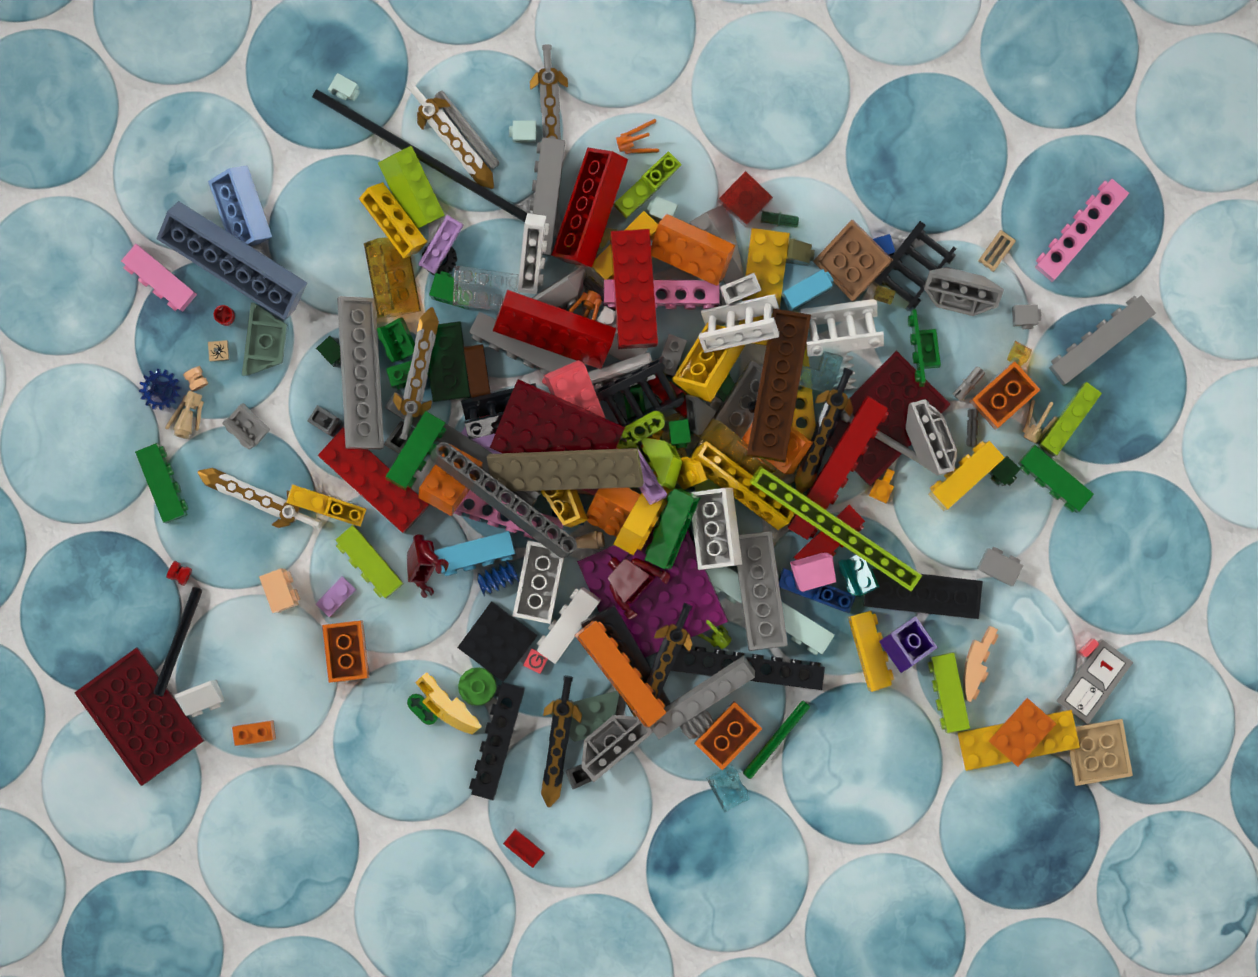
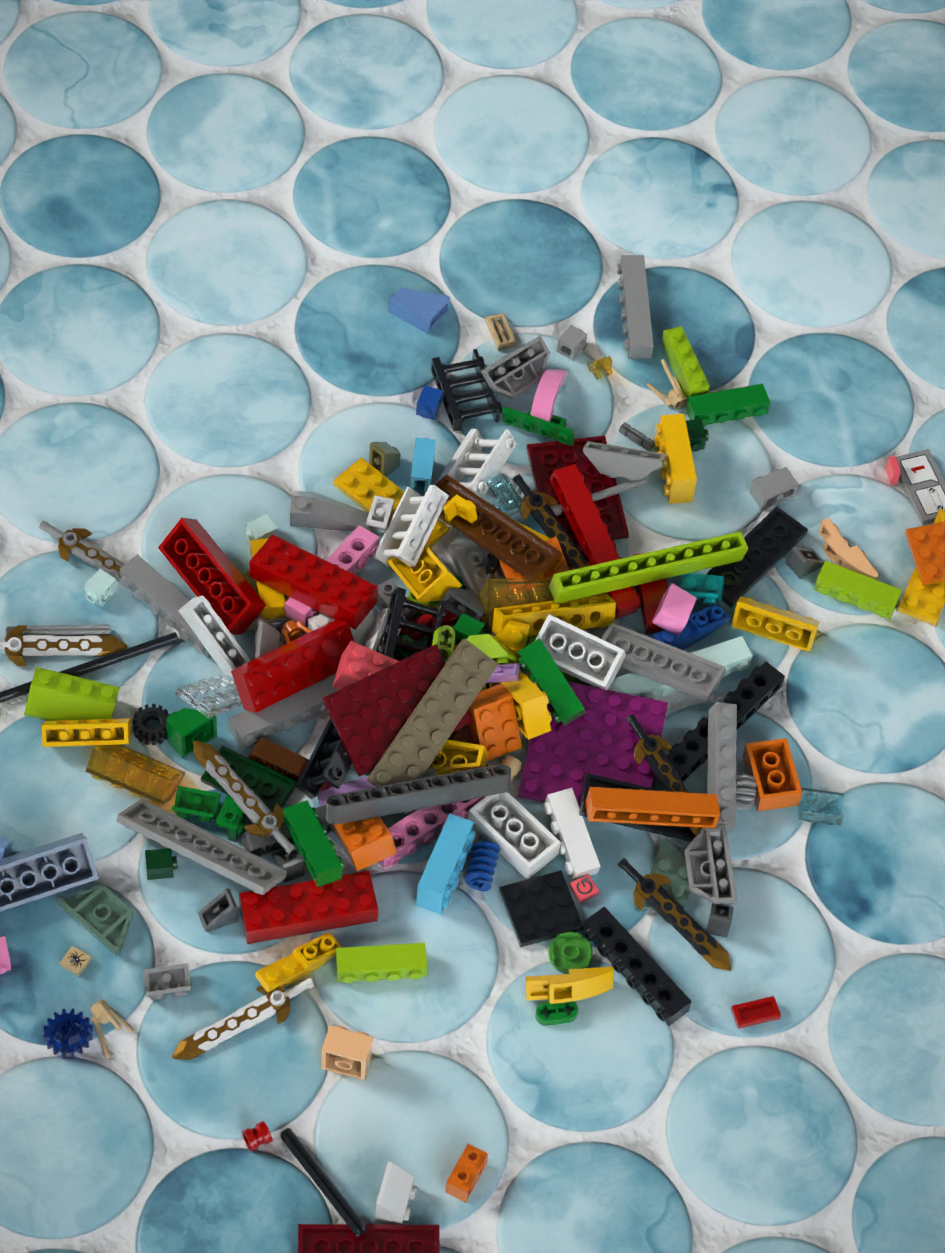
camera: 65 degrees left, 30 degrees down
(161, 482) = (157, 1092): green brick -> none
(186, 429) = (122, 1039): tan cone -> none
(195, 378) = (84, 994): light nougat wheel -> none
(220, 315) = (47, 930): red wheel -> none
(335, 596) = (390, 1016): lavender plate -> none
(345, 651) = (451, 1035): orange brick -> none
(422, 562) = (418, 913): dark red torso -> none
(440, 244) = (142, 709): lavender tile -> none
(625, 141) = (175, 517): orange plant -> none
(630, 580) = (571, 750): dark red torso -> none
(647, 185) = (229, 526): lime slope -> none
(692, 249) = (318, 521): orange brick -> none
(720, 636) = (676, 726): lime plant -> none
(745, 199) = (305, 467): clear red brick -> none
(776, 739) = (803, 745): green axle -> none
(779, 219) = (342, 457): clear green axle -> none
(780, 356) = (460, 507): none -> yellow bracket
(853, 260) = (425, 416): medium nougat plate -> none
(881, 488) = (638, 530): light orange plate -> none
(884, 294) = (471, 421): clear yellow slope -> none
(908, 644) = (792, 588): dark purple brick -> none
(949, 636) = (804, 561): none -> dark grey slope
(956, 332) = (547, 392): none -> bright pink slope
(967, 172) = (419, 308): none -> medium blue slope
(968, 383) = (597, 415): light grey axle -> none
(1005, 395) = (628, 393): orange brick -> none
(1115, 194) = (532, 265): bright pink brick -> none

